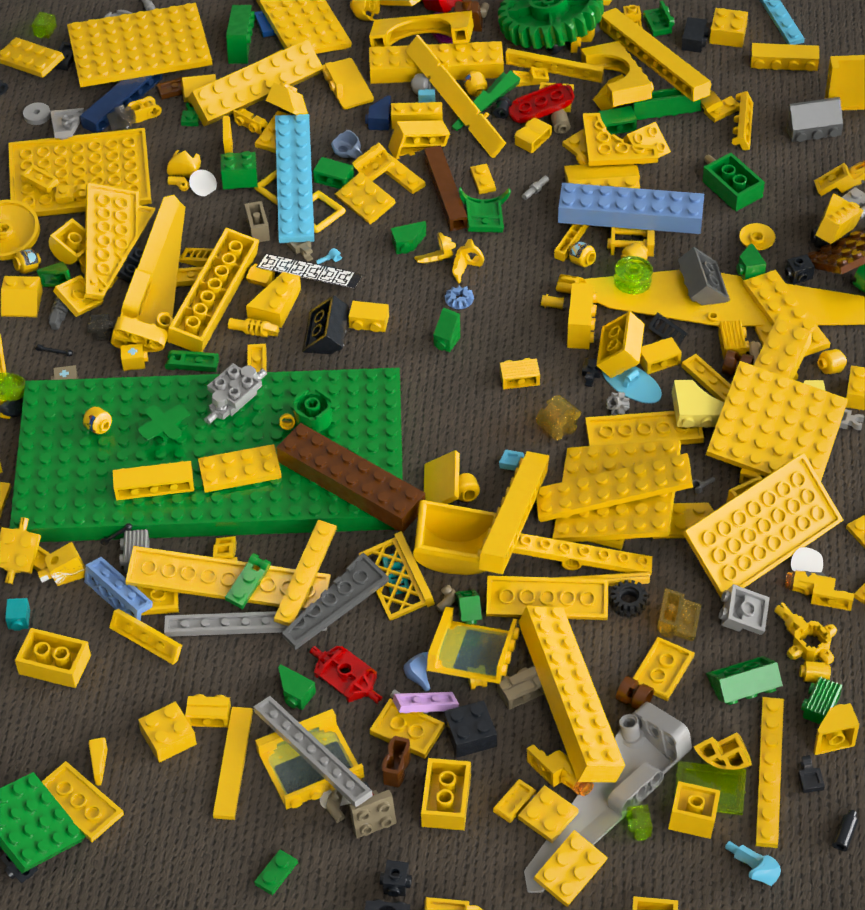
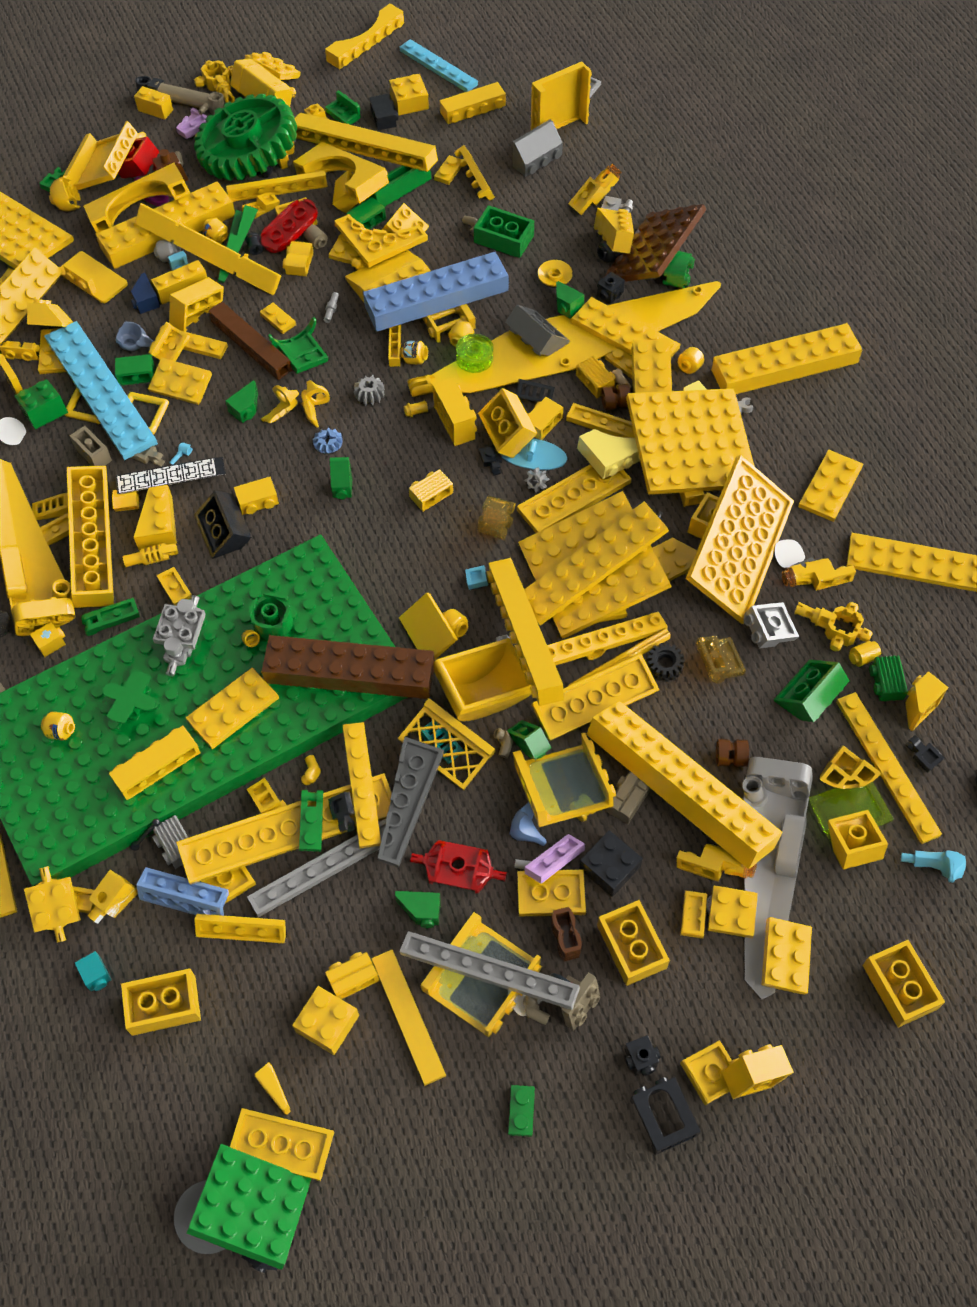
camera: 30 degrees left, 10 degrees up
(275, 550) = (312, 772): none -> yellow arm
(277, 581) = (341, 809): none -> black plate
(521, 269) = (369, 390): none -> light grey gear
(639, 821) = (816, 876): clear neon green brick -> none
(663, 667) = (735, 713): yellow tile -> none
(711, 102) = (440, 167): yellow slope -> none

